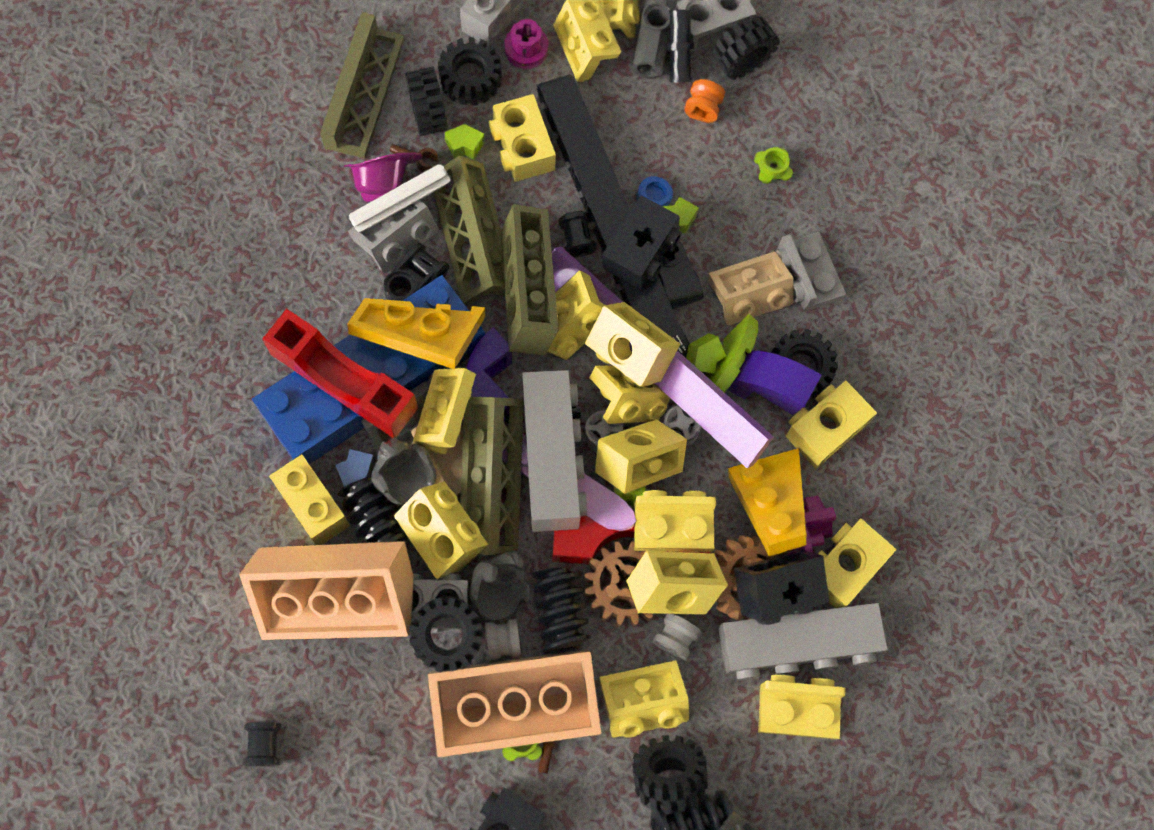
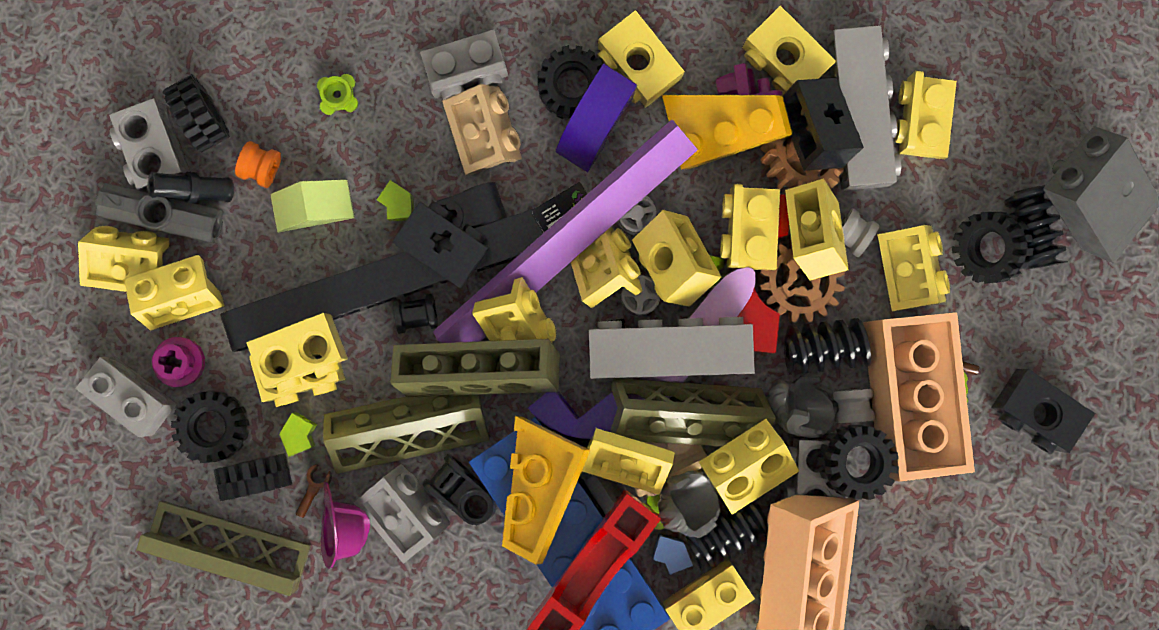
camera: 85 degrees left, 15 degrees up
(399, 198) = (372, 507): white axle -> none
(543, 126) = (296, 342): none -> light yellow brick
(651, 346) = (560, 260): light yellow brick -> none
(656, 190) = (368, 227): blue tile -> none
(672, 148) = (311, 204): none -> yellowish green slope
(705, 353) = (563, 185): lime piece -> none
(735, 344) = (552, 150): lime tile -> none

